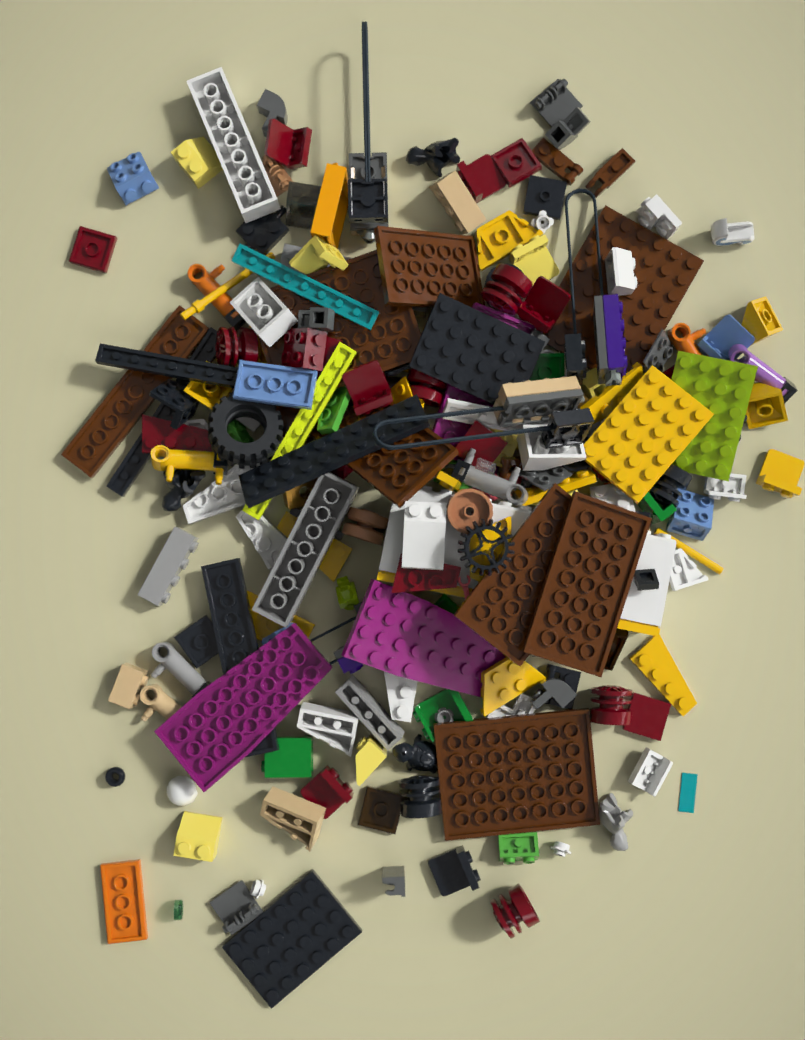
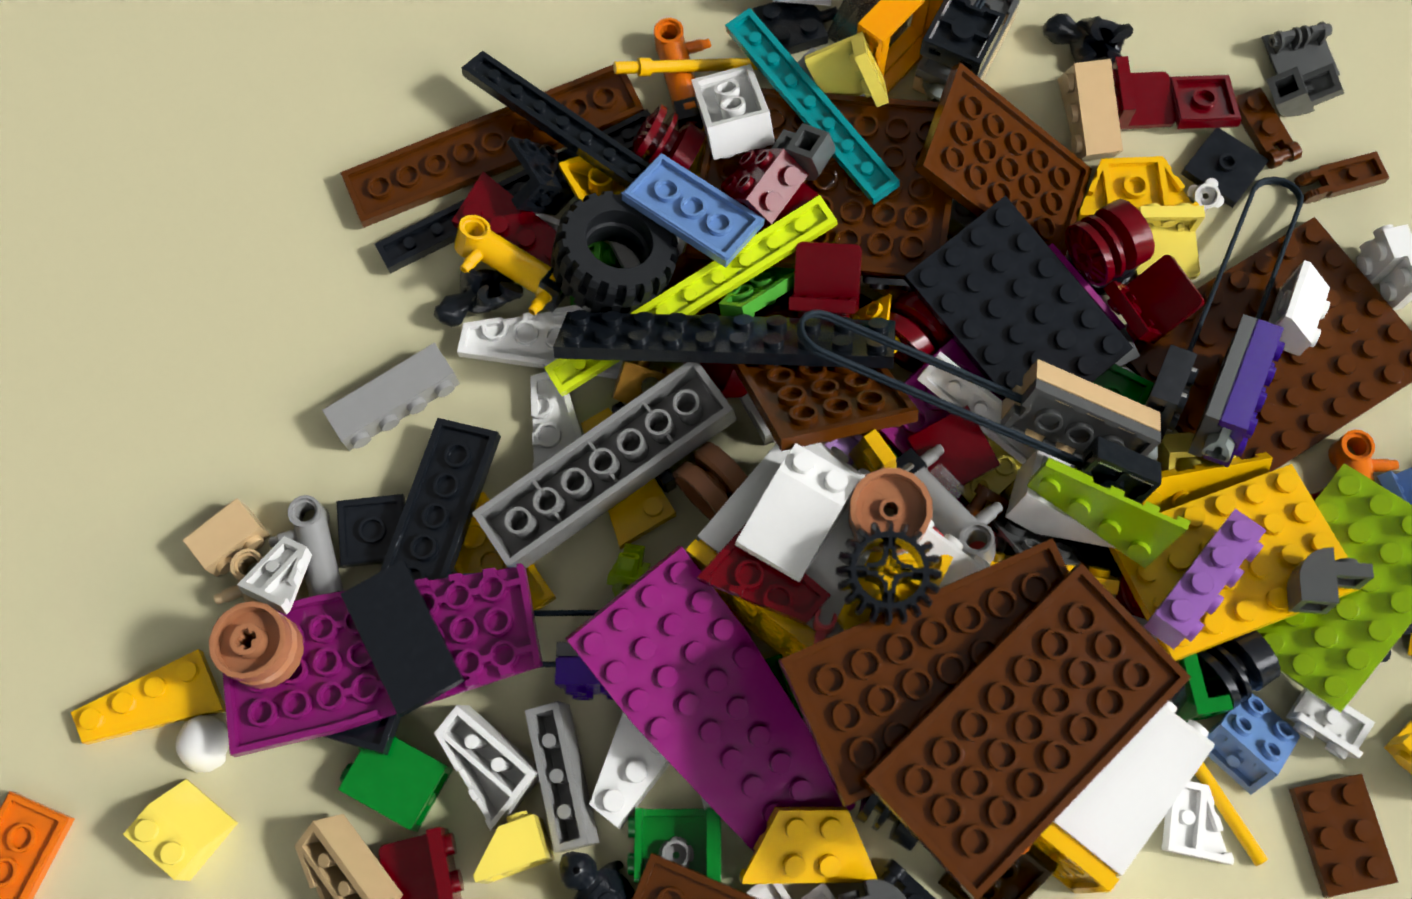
camera: 30 degrees right, 15 degrees down
(110, 779) = (112, 663): black plate -> none
(146, 780) = (157, 699): none -> yellow wing
(170, 693) = (278, 575): none -> white wing
(181, 746) = (256, 645): none -> nougat wheel
(255, 692) = (402, 638): none -> black tile
(572, 447) = (1122, 522): none -> lime wing
(636, 455) = (1205, 578): none -> medium lavender brick
(646, 579) = (1133, 778): black plate -> none
(659, 353) = (1310, 454): dark grey hinge -> none
(689, 428) = (1316, 581): none -> dark grey brick
(753, 537) = (1343, 836): none -> reddish brown plate

